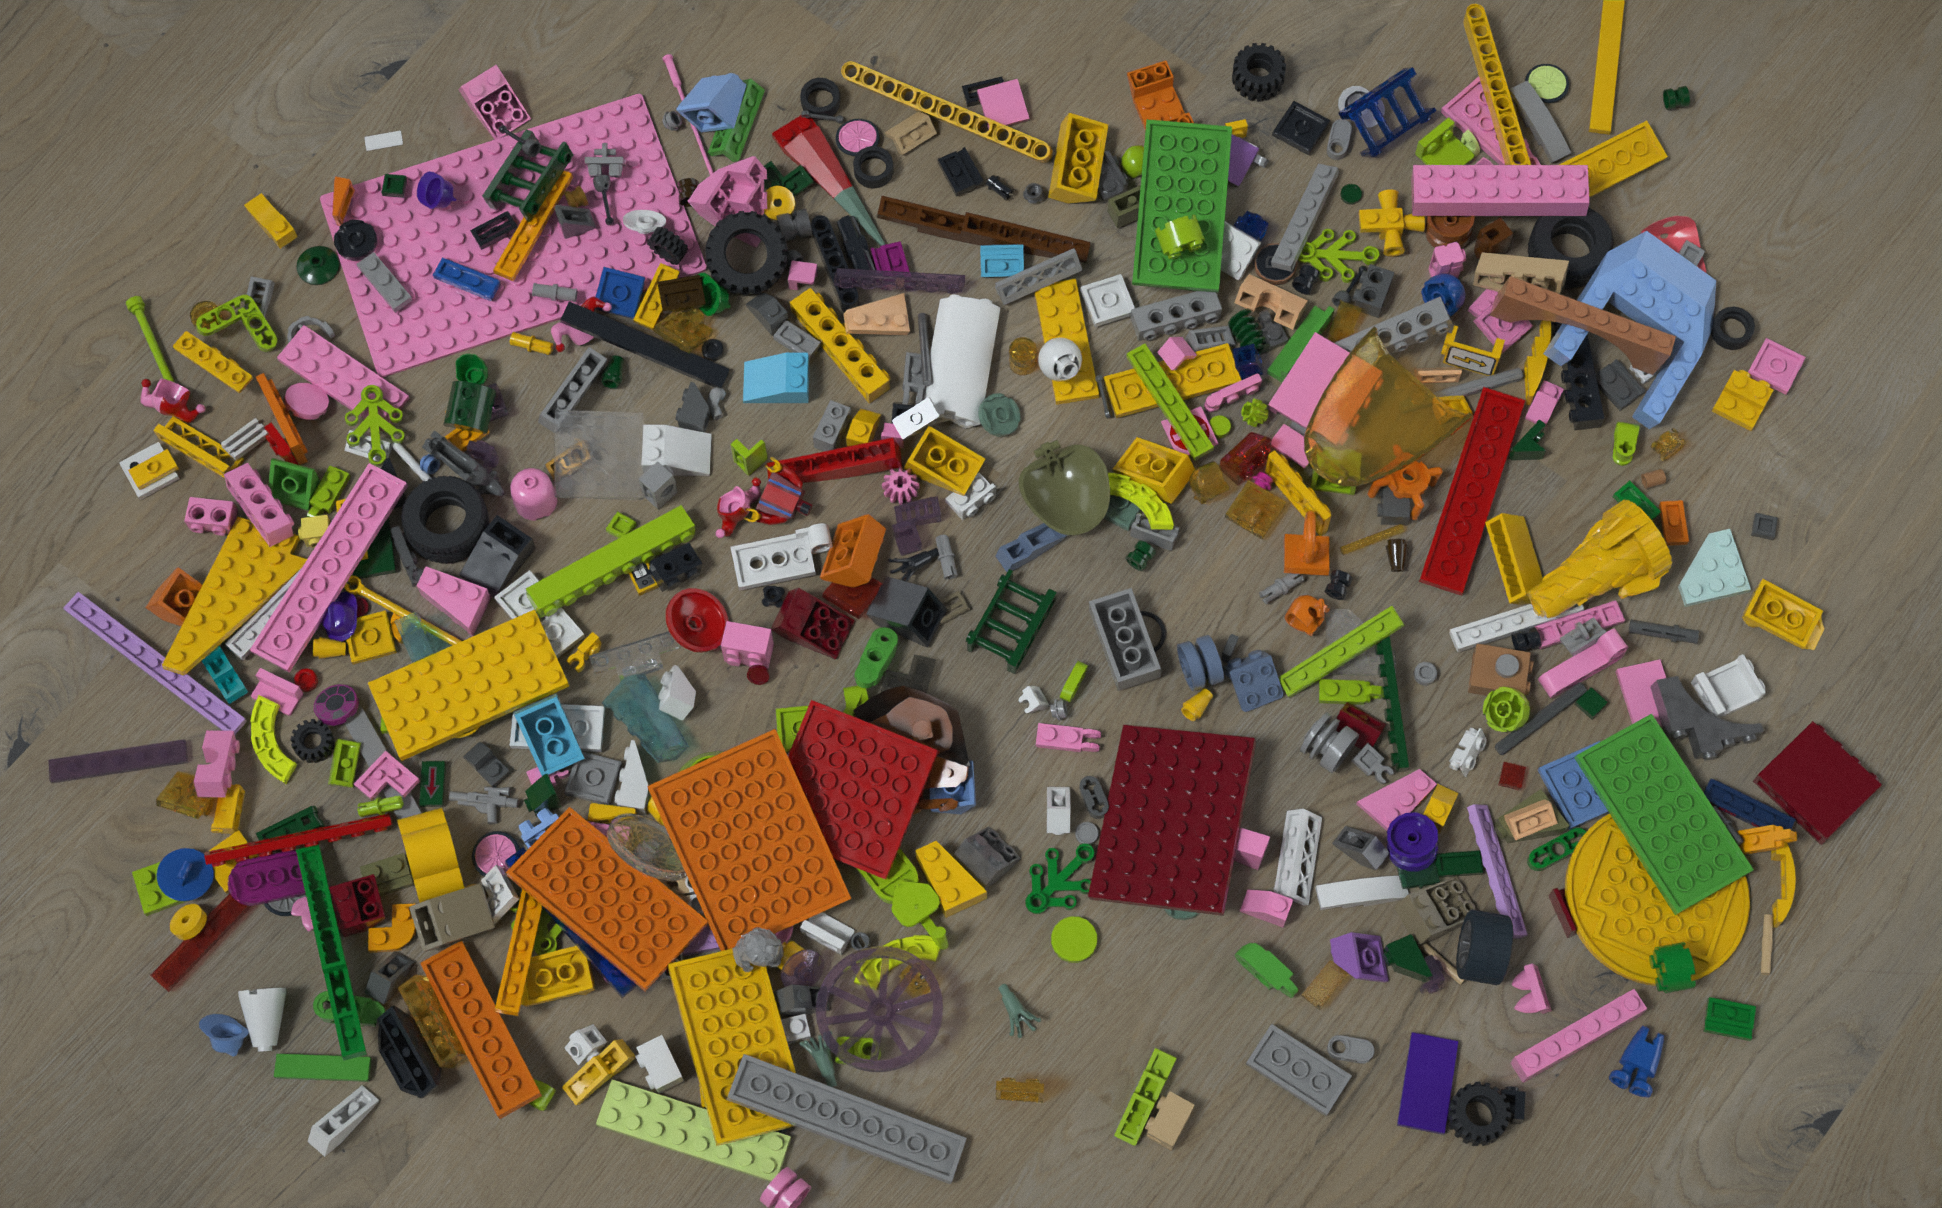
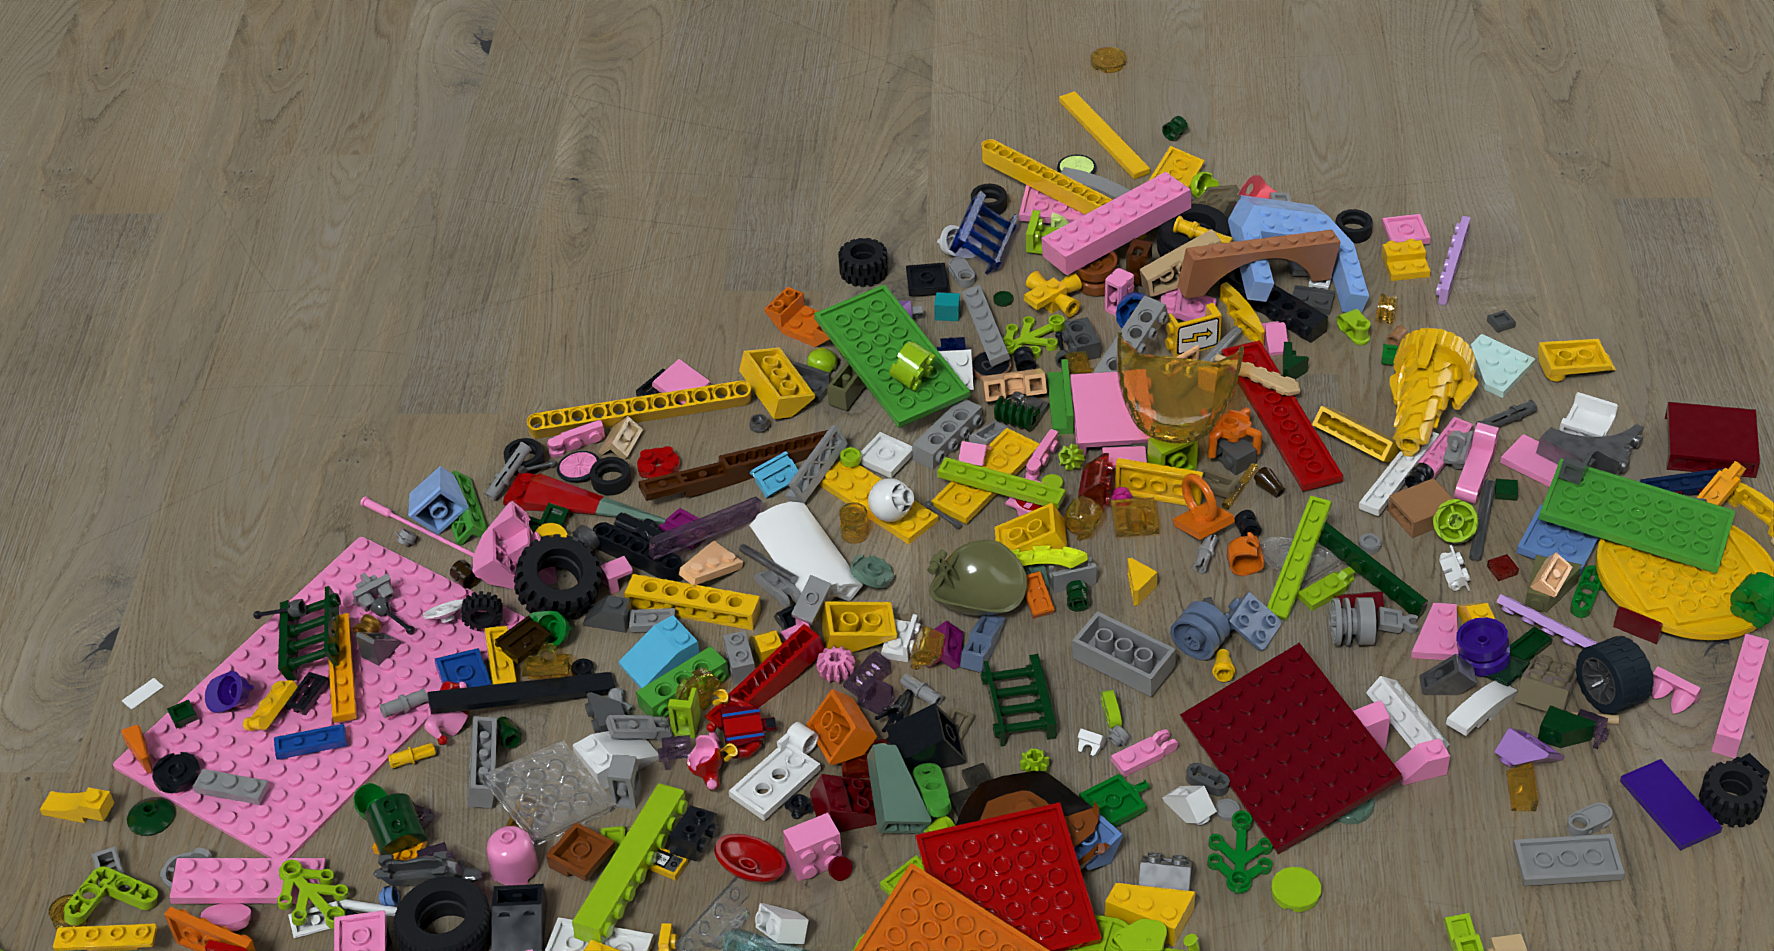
camera: 35 degrees left, 25 degrees down
(458, 225) = (270, 706): none -> yellow plate
(494, 102) = (228, 608): bright pink slope -> none
(584, 524) = (579, 852): none -> dark orange plate
(704, 440) = (638, 727): none -> light grey hinge
(722, 477) = (674, 748): none -> clear purple bracket
(762, 414) = (655, 696): none -> bright green brick
(775, 439) = (705, 683): none -> clear yellow plate
(781, 113) = (502, 479): none -> light grey pin
(842, 642) = (894, 793): none -> sand green slope
(874, 107) = (576, 438): none -> bright pink hinge
(922, 191) = (650, 457): none -> red plate
(960, 171) = (686, 441): black plate -> none
(975, 524) = (926, 647): none -> clear yellow brick
(977, 692) = (1034, 761): none -> lime gear
(995, 184) = (727, 434): black pin -> none
(998, 528) = (951, 646): none -> magenta panel
(1004, 765) = (1117, 799): none -> green plate
(1073, 285) = (850, 457): none -> lime tile
(1109, 531) = (1038, 596): none -> orange plate
(1202, 578) = (1141, 580): none -> yellow slope
(1248, 361) = (1034, 426): clear blue brick -> none
(1266, 968) = (1469, 804): bright green piece -> none
(1290, 173) = (947, 306): none -> teal panel
(1356, 537) = (1213, 479): none -> dark tan tile
(1440, 59) = (992, 191): none -> black tyre
(1497, 463) = (1273, 380): none -> tan sword
(1506, 666) = (1427, 493): light grey tile -> none
(1561, 247) = (1194, 230): none -> yellow pin
(1626, 215) = (1219, 197): none -> dark tan plate
(1636, 189) = (1201, 182): none -> lime hair
(1647, 735) = (1574, 470): none -> dark grey panel
(1791, 426) = (1451, 264): none -> lavender plate

